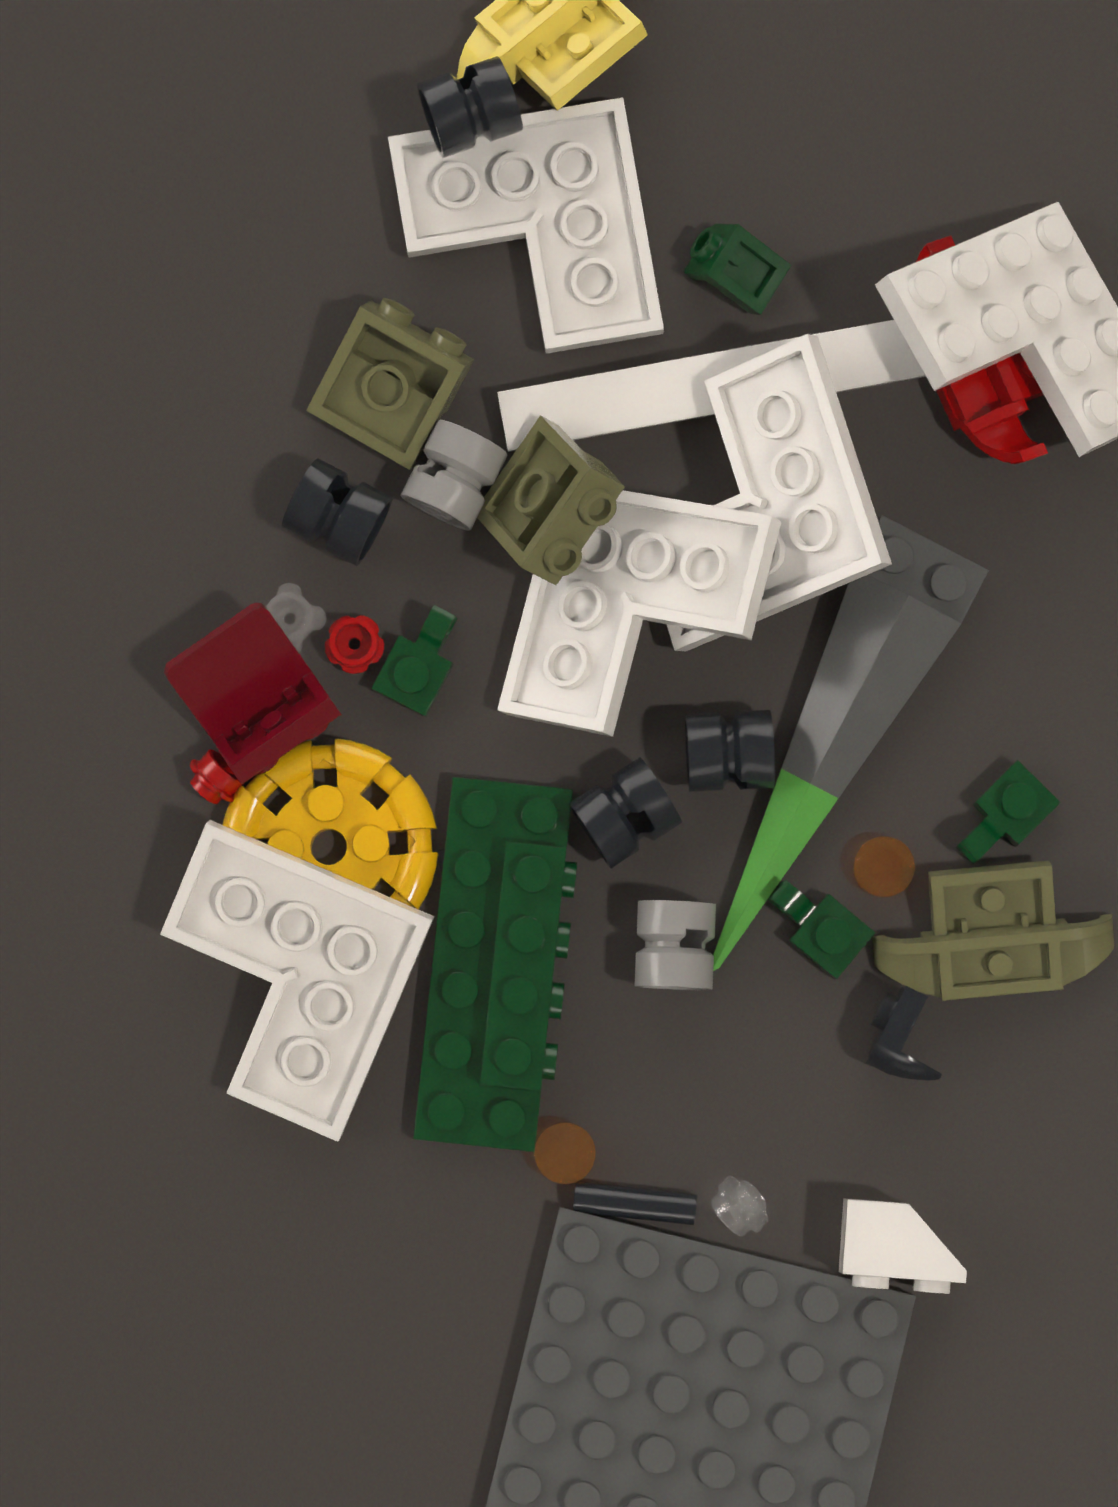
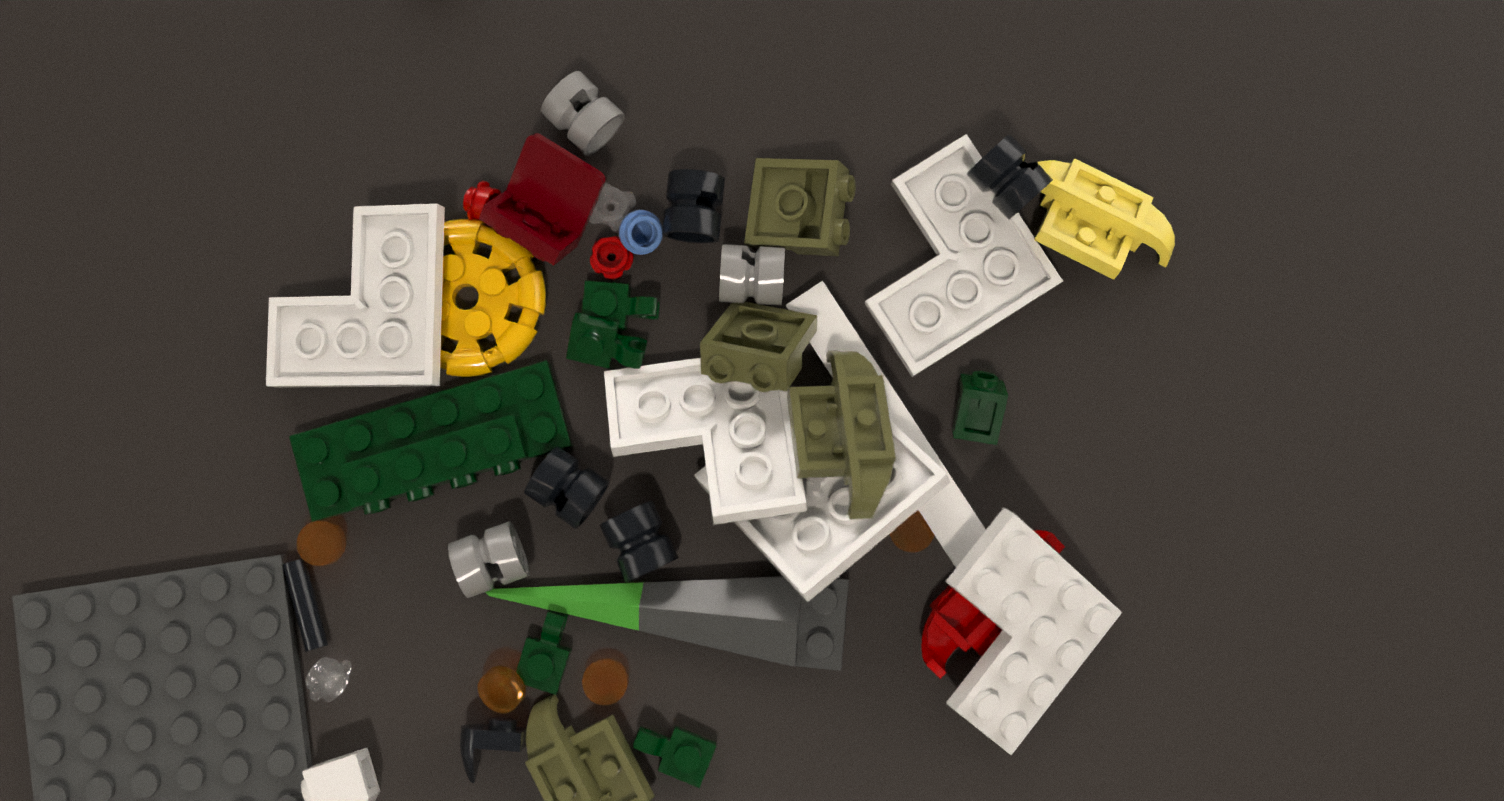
camera: 65 degrees right, 0 degrees up
(179, 596) = (576, 107): none -> light grey wheel
(341, 591) = (640, 232): none -> medium blue plate
(456, 700) = (597, 342): none -> dark green plate
(702, 435) = (845, 431): none -> olive plate
(841, 996) = (501, 689): none -> clear orange tile
(861, 412) = (912, 534): none -> clear orange tile

